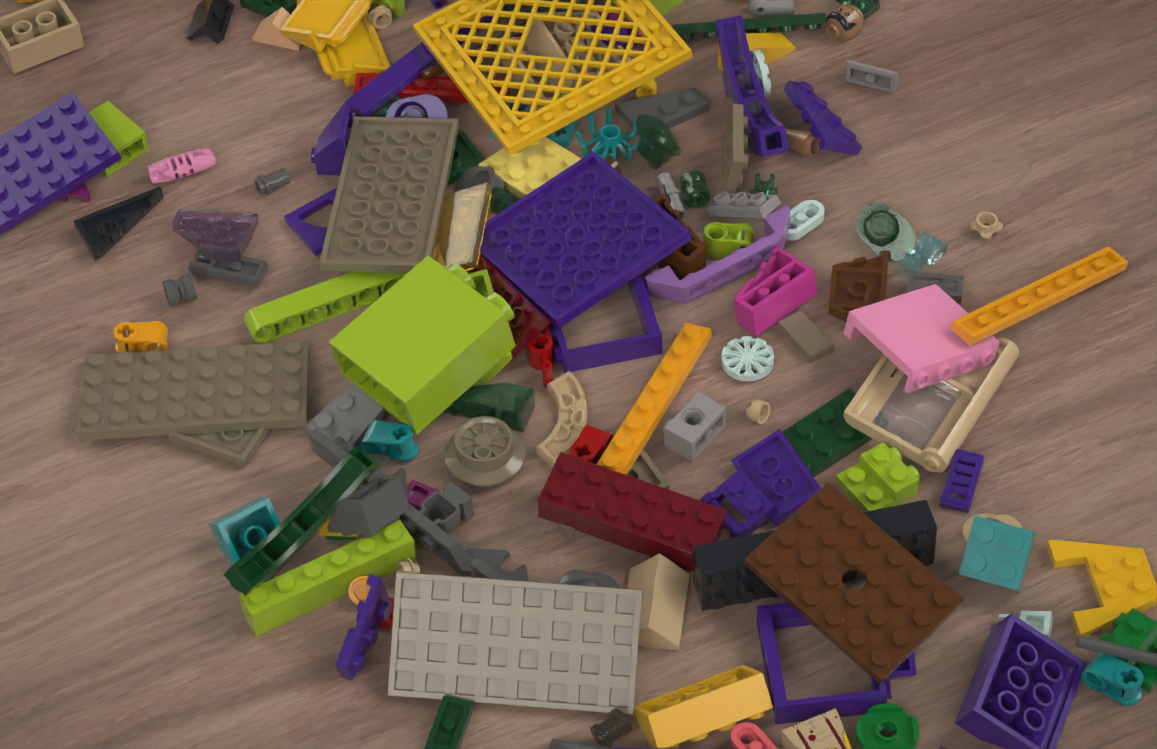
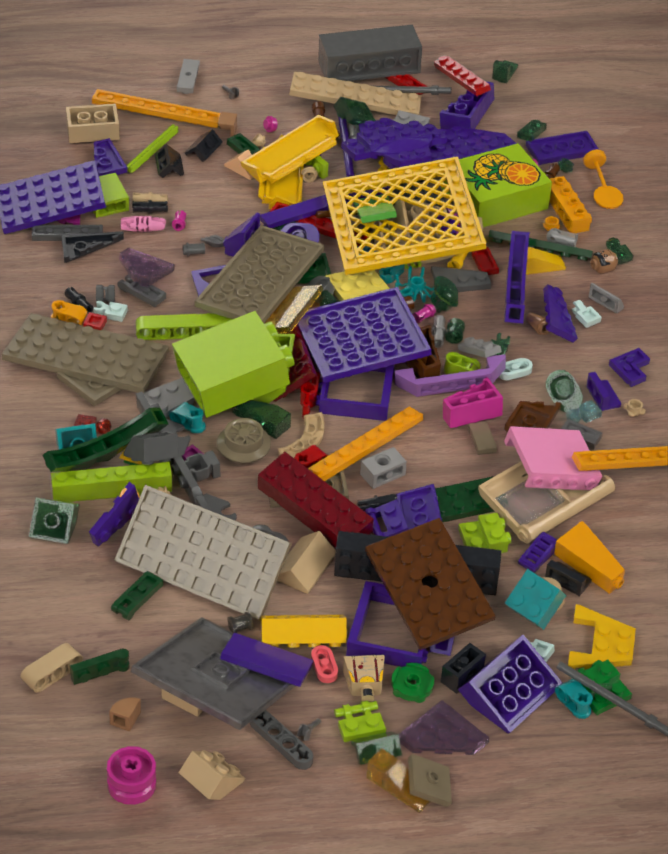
camera: 15 degrees right, 5 degrees down
(63, 216) = (55, 232): none -> dark grey tile
(83, 80) = (108, 158): none -> dark purple wing
(138, 46) = (152, 148): none -> lime axle
(144, 311) = (78, 299): none -> black pin
(171, 59) = (168, 160): none -> black panel
(172, 123) = (144, 197): none -> tan pin
(178, 136) = (150, 206): none -> black pin
(185, 337) = (95, 321): none -> red plate
(201, 313) = (113, 311): none -> light aqua plate
(231, 147) = (179, 221): none -> dark pink pin
(244, 494) = (102, 426): none -> clear red plate
(273, 664) = (53, 520): none -> clear green slope
(294, 159) = (214, 241): none -> flat silver piece
(517, 49) = (379, 212): none -> bright green tile
(642, 171) = (428, 311): none -> dark pink pin
(688, 76) = (485, 261): none -> red tile
(711, 480) = (376, 501): none -> black axle
(733, 150) = (492, 310): dark tan plate -> none
(747, 358) = (438, 440): light aqua wheel -> none
(758, 411) = (428, 468): tan hinge -> none
(761, 71) = (530, 272): light aqua wheel -> none
(858, 109) = (586, 316): none -> light aqua plate
(933, 216) = (602, 392): none -> dark purple panel
(948, 689) = (462, 667): none -> black brick
(949, 168) = (628, 366): none -> dark purple plate
(1018, 503) = (567, 577): none -> black panel
(1036, 466) = (590, 557): none -> light orange slope

